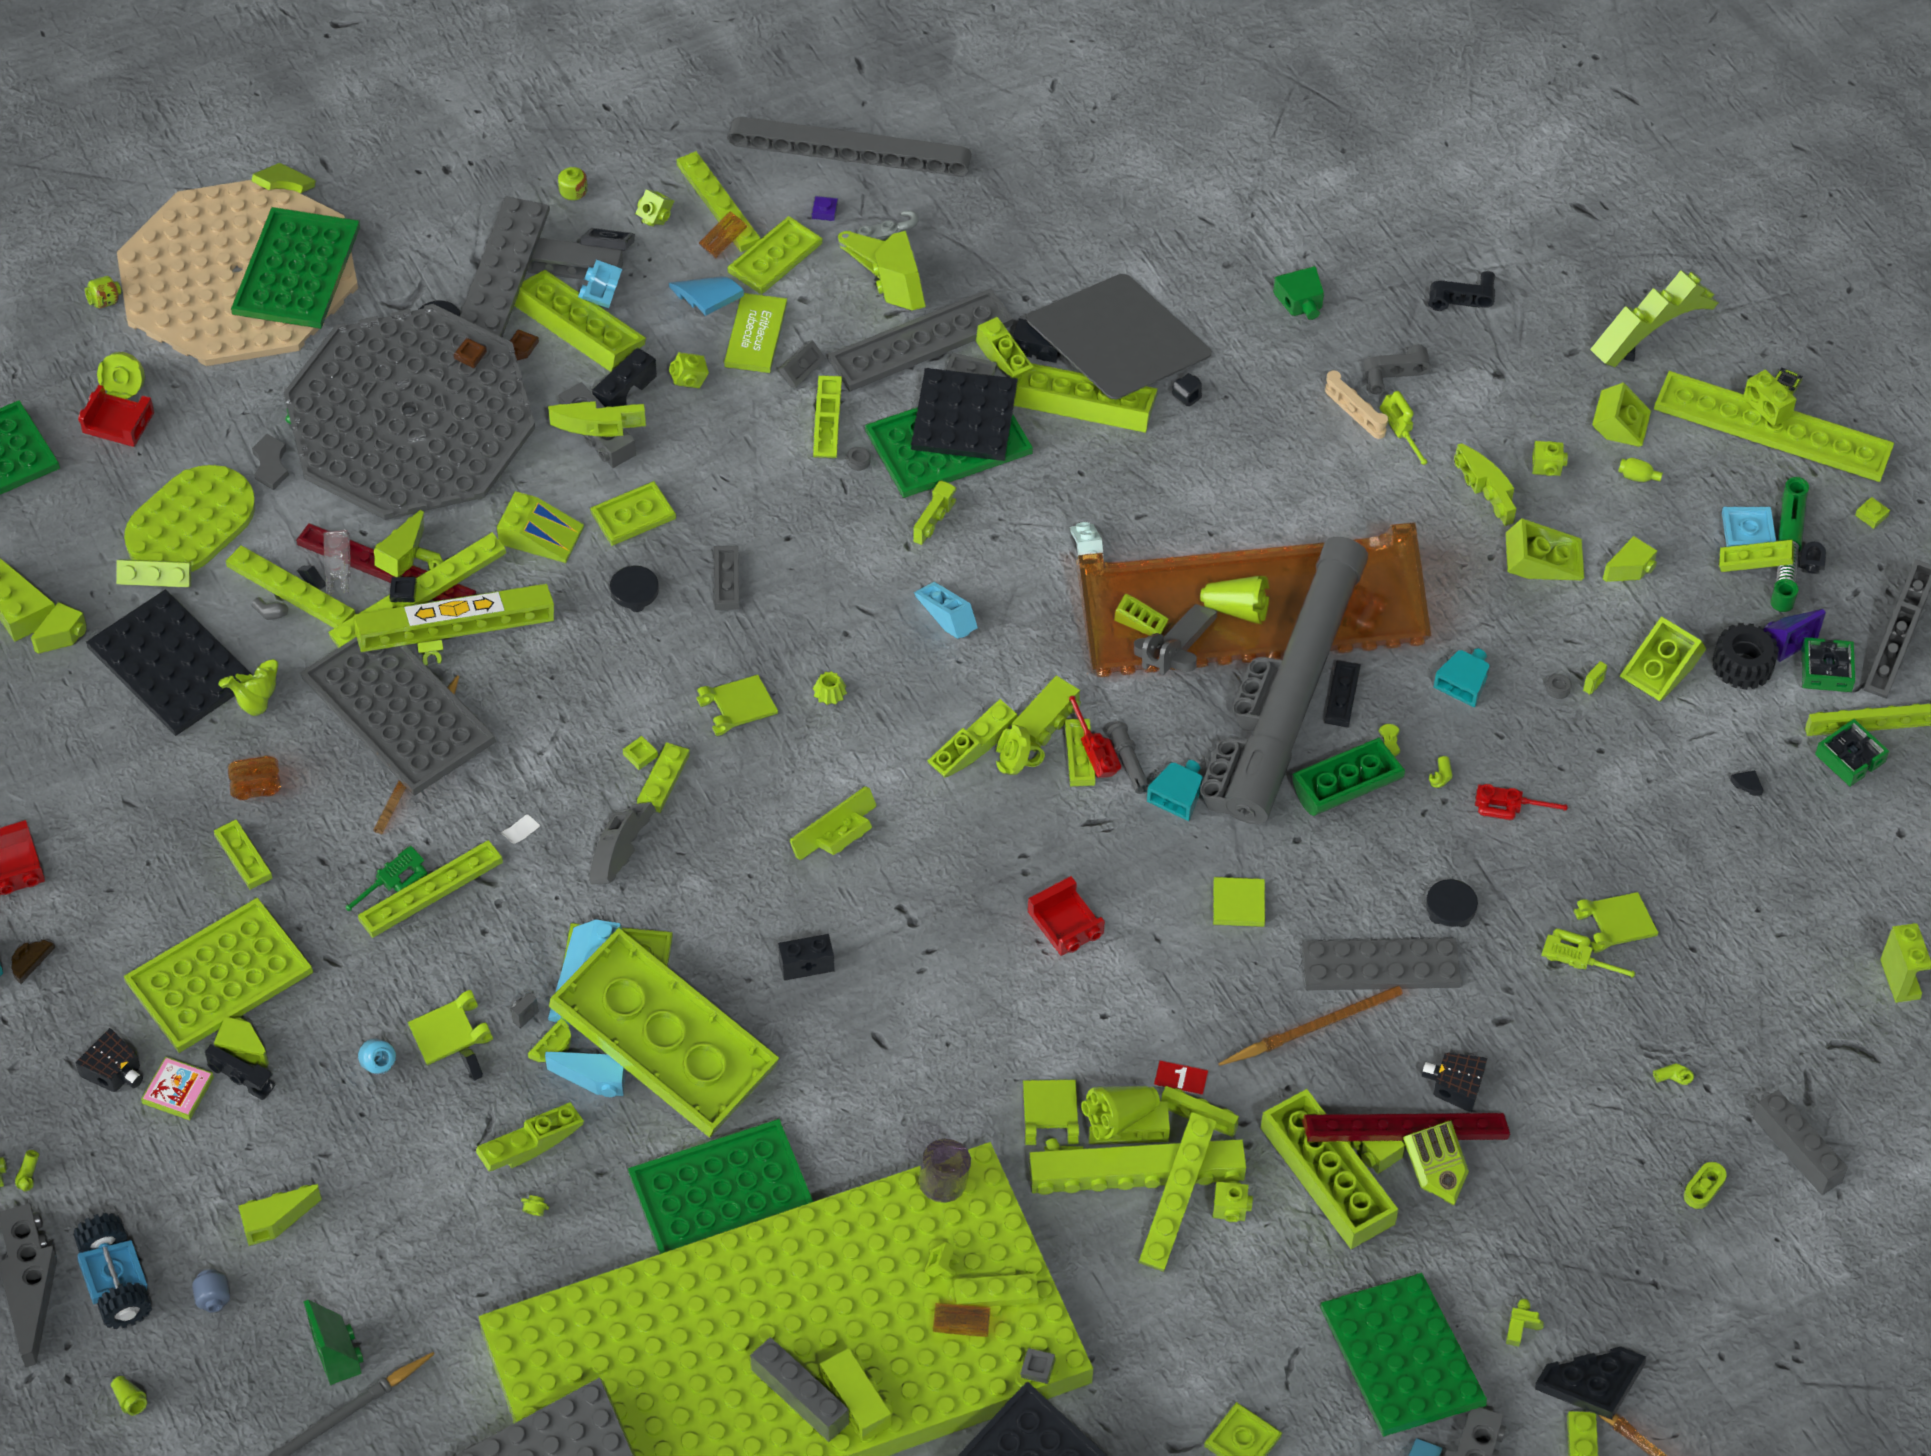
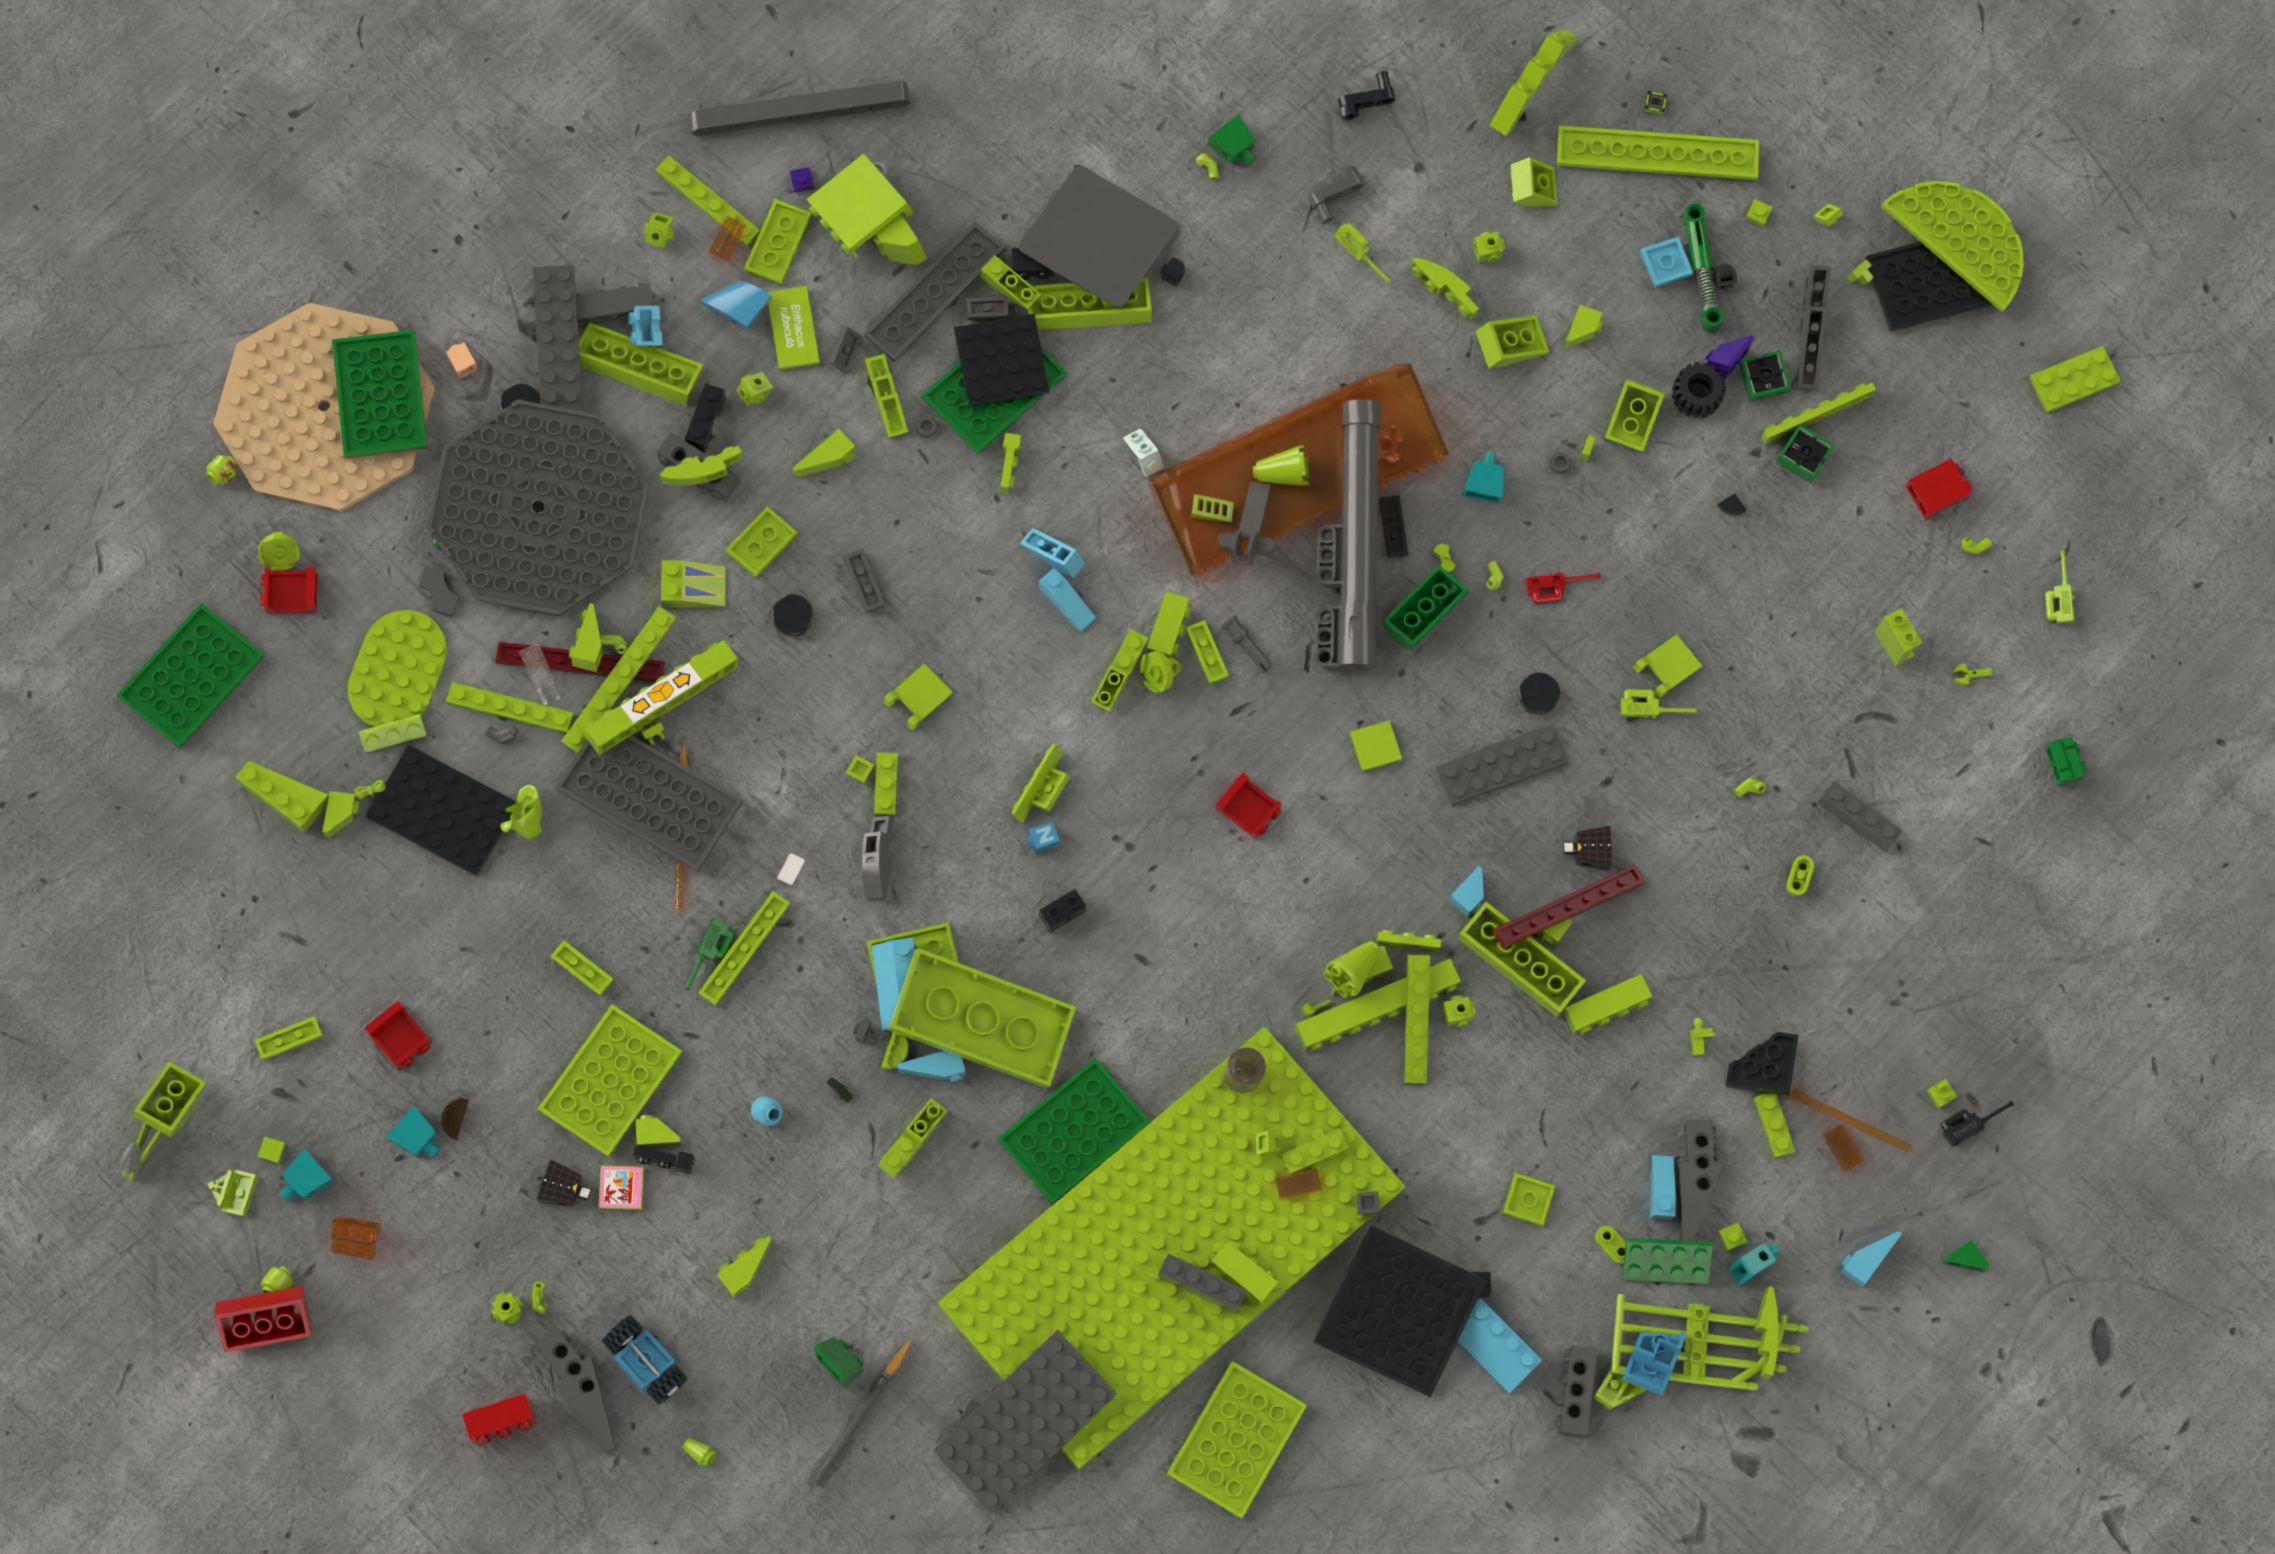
camera: 25 degrees left, 20 degrees up
(103, 619) = (361, 792): none -> lime piece
(211, 1290) = (724, 1347): sand blue head -> none
(254, 777) = (557, 908): clear orange brick -> none
(283, 177) = (323, 300): lime tile -> none
(311, 576) = (523, 692): black tile -> none
(396, 266) = (461, 360): none -> light nougat brick
(403, 589) = (609, 685): black tile -> none
(448, 1029) = (808, 1067): lime flag -> none
(470, 352) = (569, 438): reddish brown tile -> none
(523, 344) = (600, 403): reddish brown tile -> none
(534, 1205) = (938, 1193): lime plate -> none
(572, 183) = (578, 226): lime head -> none
(608, 238) = (632, 276): black tile -> none
(736, 452) = (827, 455): none -> lime slope
(816, 878) = (1043, 838): none -> dark azure brick
(829, 688) = (987, 660): lime piece -> none
(869, 232) = (857, 204): none -> lime panel
(941, 655) = (1066, 599): none -> medium azure slope
(1050, 1106) = (1293, 975): lime flag -> none
(1099, 749) = (1218, 646): red piece -> none
(1177, 789) = (1296, 661): teal torso -> none
(1181, 1077) = (1382, 914): red sticker -> none
(1264, 302) = (1210, 163): none -> lime arm
(1278, 1040) = (1445, 860): clear orange piece -> none
(1291, 1078) = (1469, 893): none -> medium azure slope
(1355, 406) = (1320, 246): tan plate -> none
(1403, 1354) = (1623, 1094): green plate -> none
(1418, 1251) = (1608, 1004): none -> lime brick
(1438, 1161) = (1600, 925): lime tile -> none
(1638, 470) = (1563, 233): lime plant -> none
(1756, 555) = (1681, 290): lime plate -> none
(1769, 398) = (1650, 132): lime brick -> none

